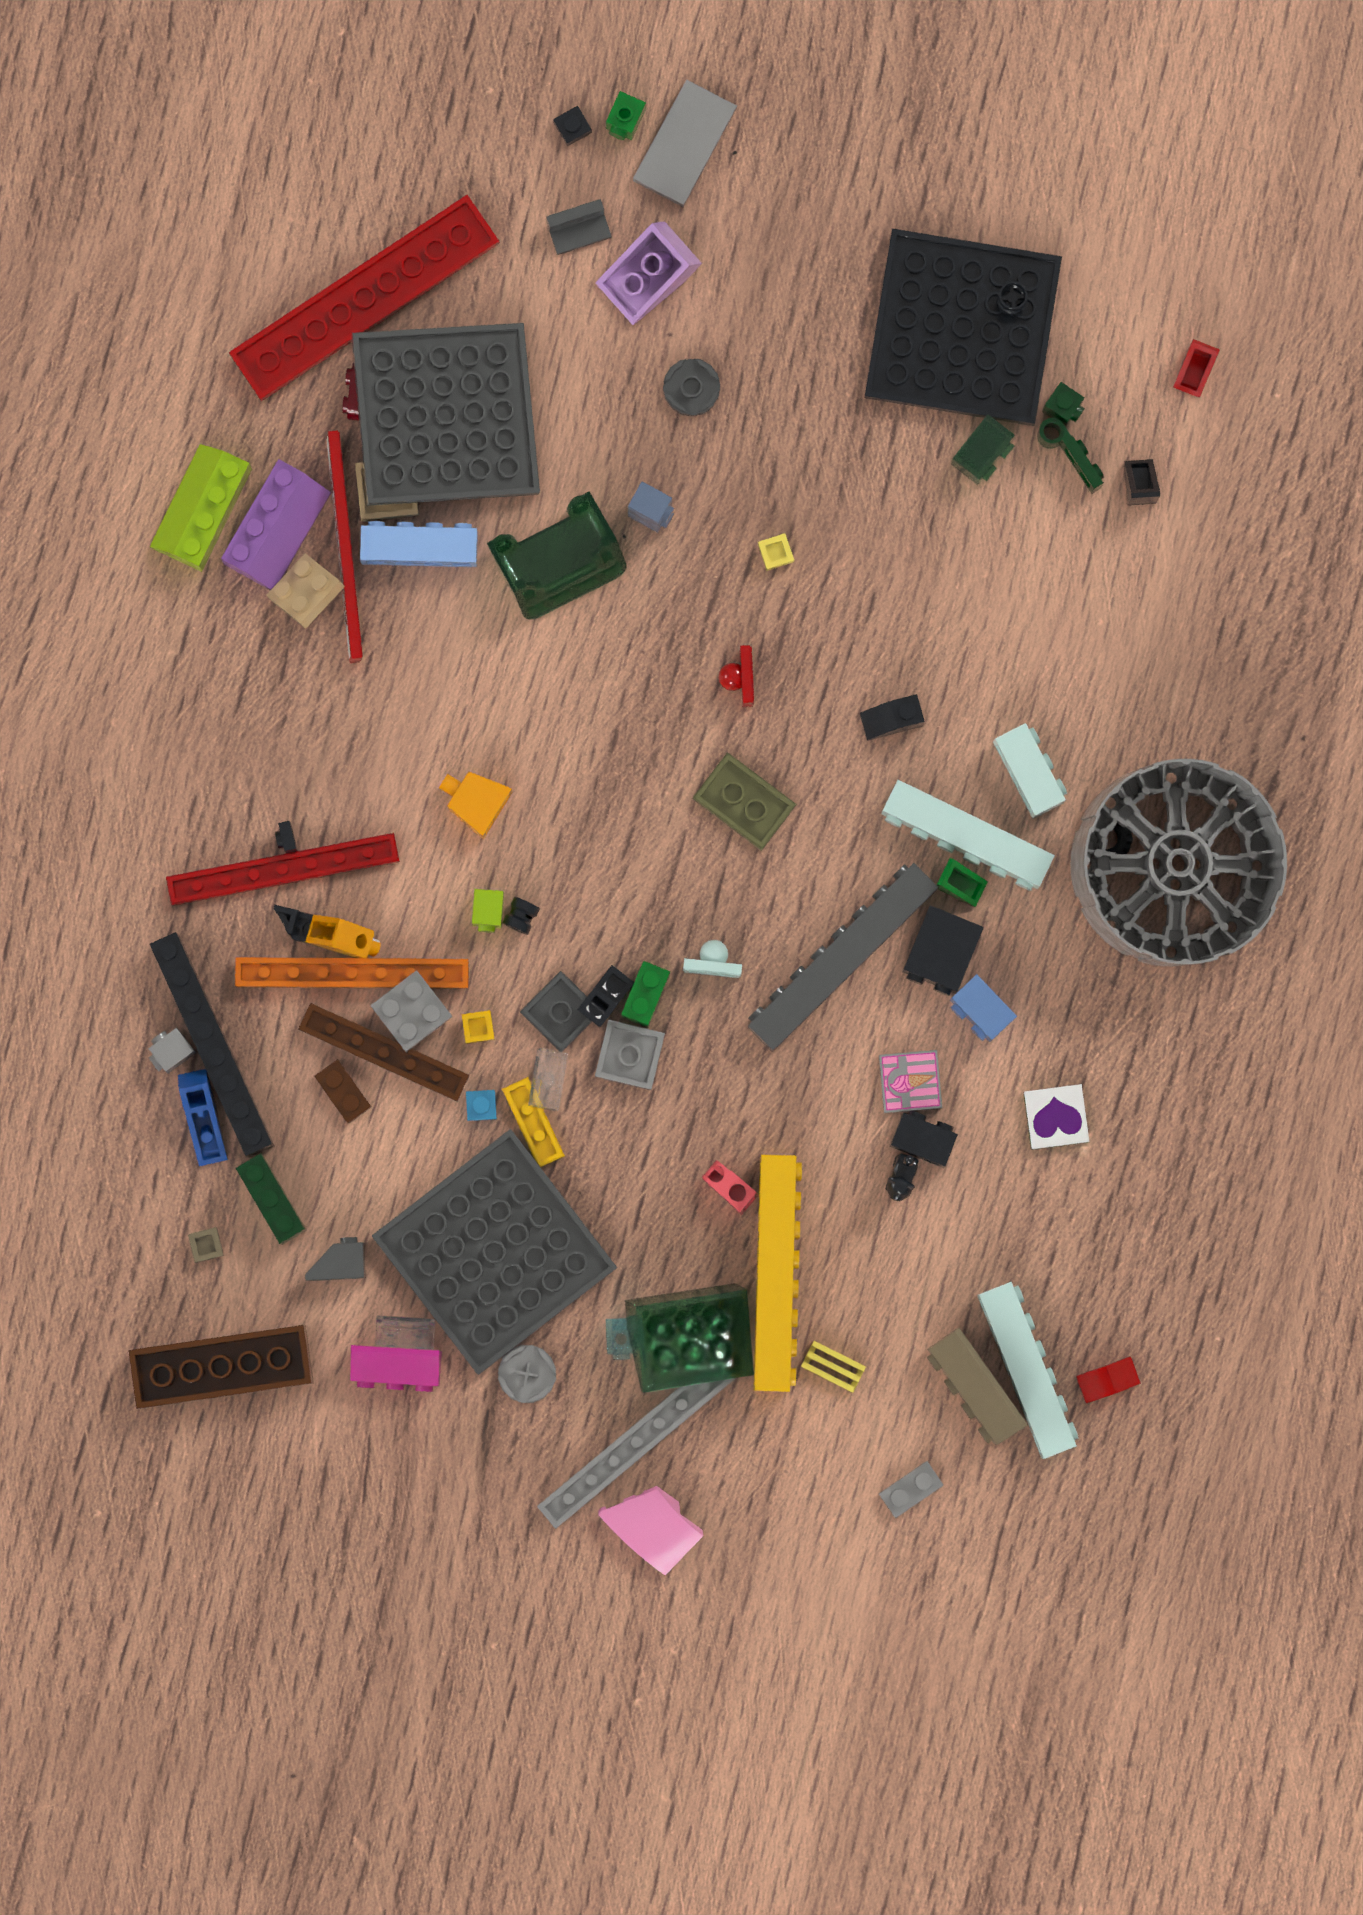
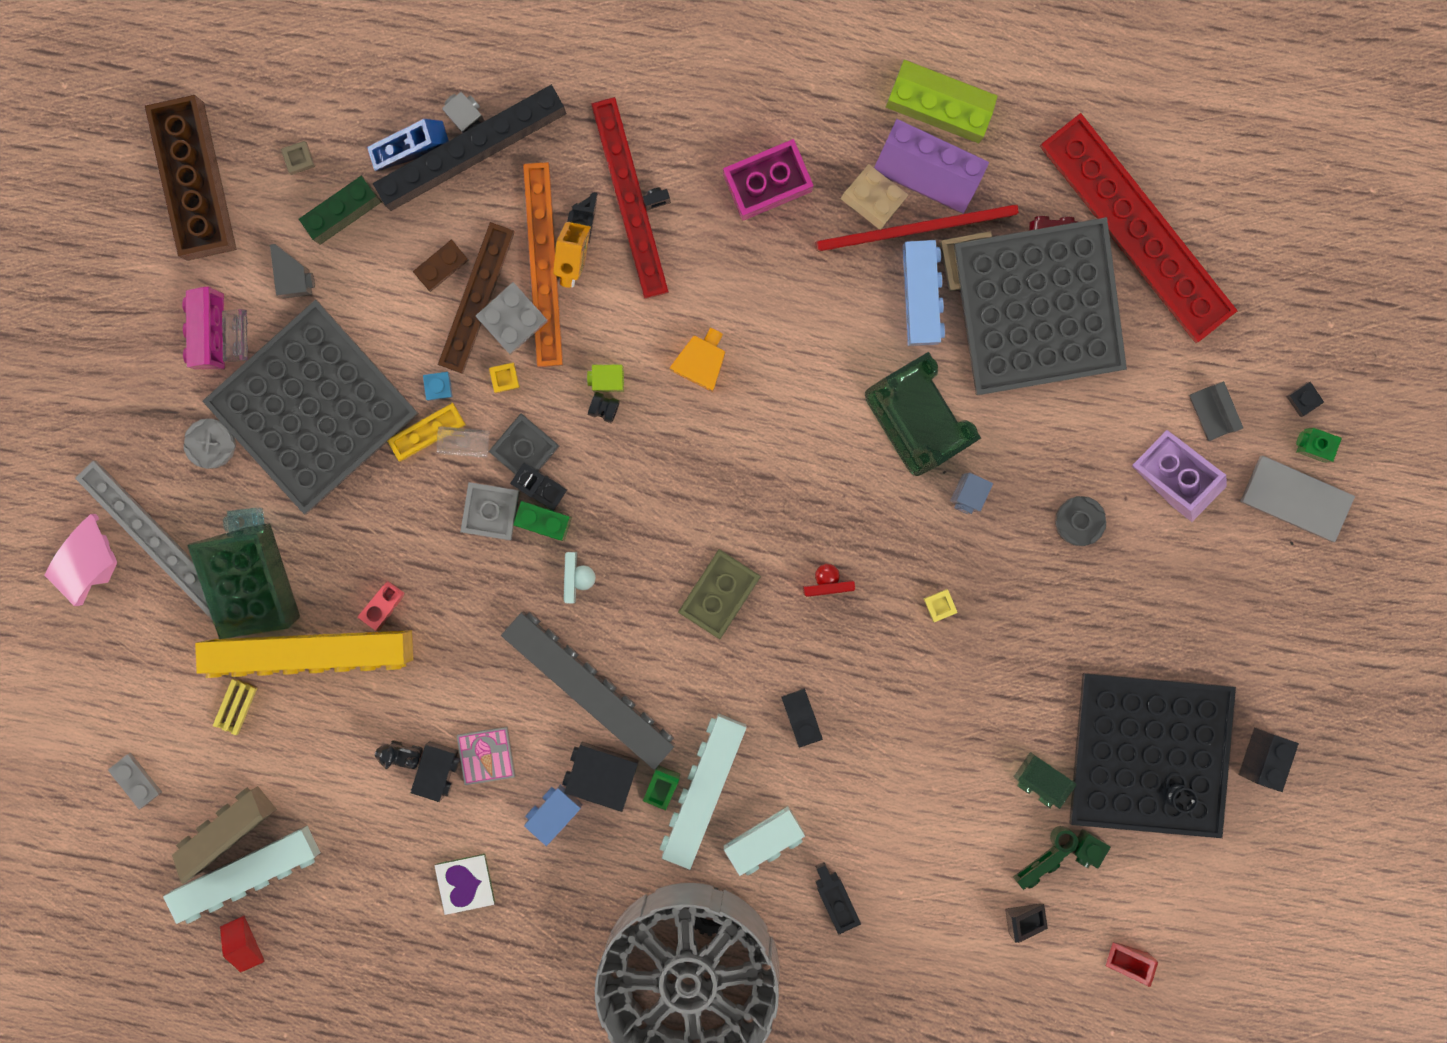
camera: 85 degrees right, 5 degrees up
(277, 709) = (768, 179): none -> dark pink brick
(974, 200) = (1268, 759): none -> black brick
(1103, 694) = (836, 900): none -> black hinge

